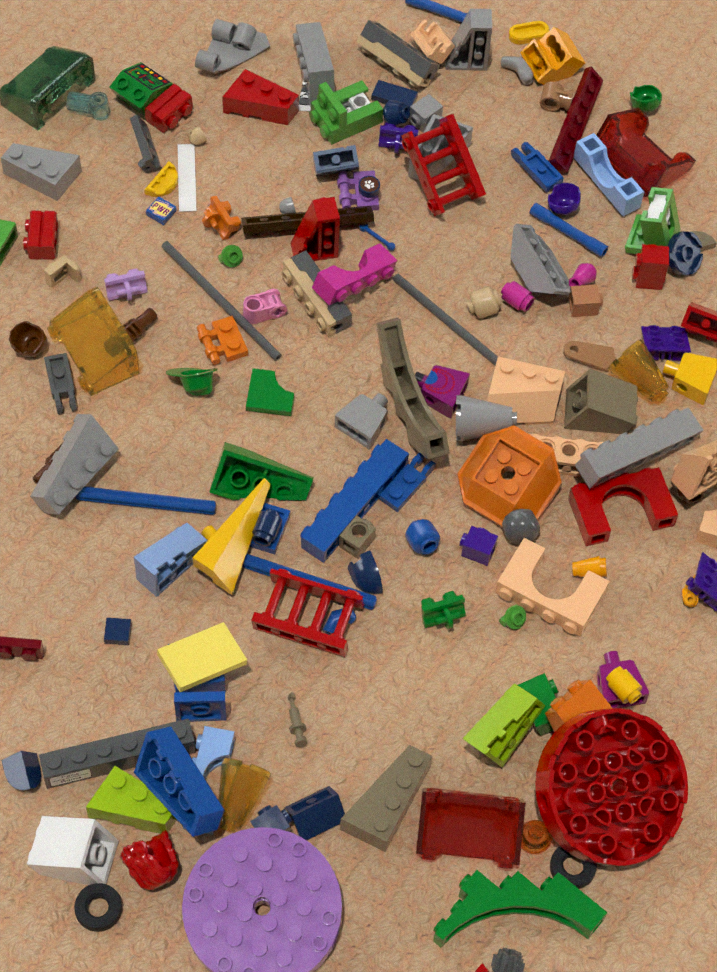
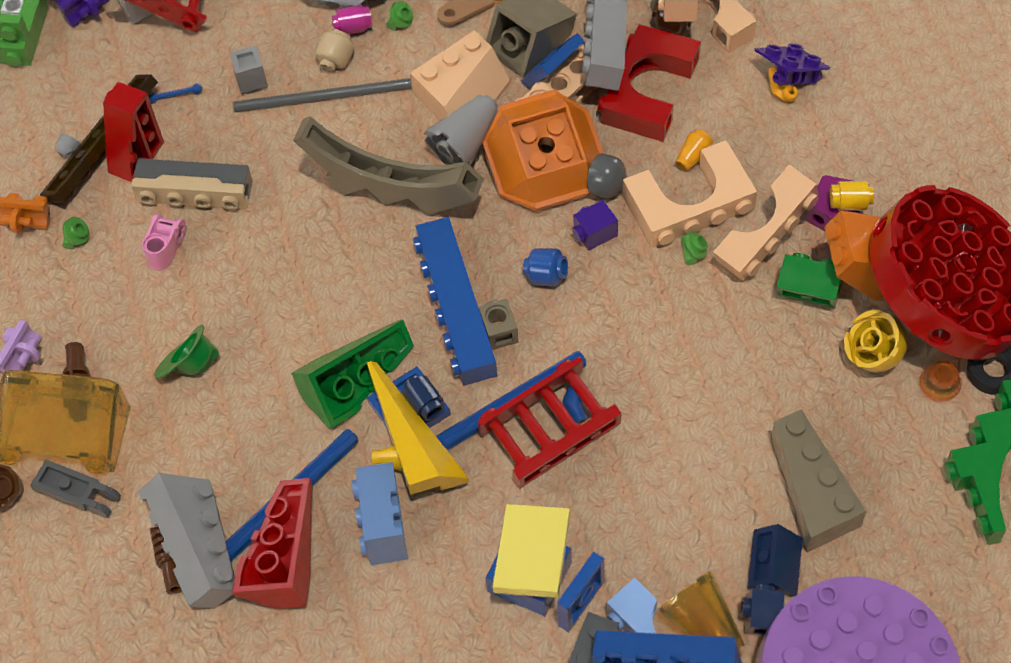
camera: 45 degrees left, 0 degrees up
(97, 523) = (280, 552): none -> red wedge
(117, 631) = (419, 622): dark blue tile -> none
(227, 306) = (115, 275): dark grey piece -> none
(228, 337) = (166, 296): orange plate -> none
(267, 395) = (265, 303): green tile -> none
(297, 726) = (667, 517): dark tan piece -> none
(335, 160) = (58, 68): sand blue brick -> none
(337, 284) = (208, 151): dark pink arch -> none
(348, 199) = (107, 67): medium lavender plate -> none
(363, 419) = (372, 234): light grey torso -> none
(366, 574) = (545, 343): dark blue brick -> none
(369, 186) = (116, 59): tile -> none
(406, 483) = (473, 245): blue hinge -> none
(425, 264) = (248, 69): none -> light grey brick
(442, 387) = (400, 141): magenta torso -> none
(443, 611) = (645, 302): green hips -> none
(470, 826) = (895, 424): clear red windscreen -> none
(505, 724) = (814, 322): lime wedge -> none
(519, 773) = (876, 341): none -> yellow cylinder
(547, 321) = (400, 15): none -> bright green plate
(583, 434) = (552, 60): none -> blue tile
(591, 649) = (744, 251): none -> light nougat arch

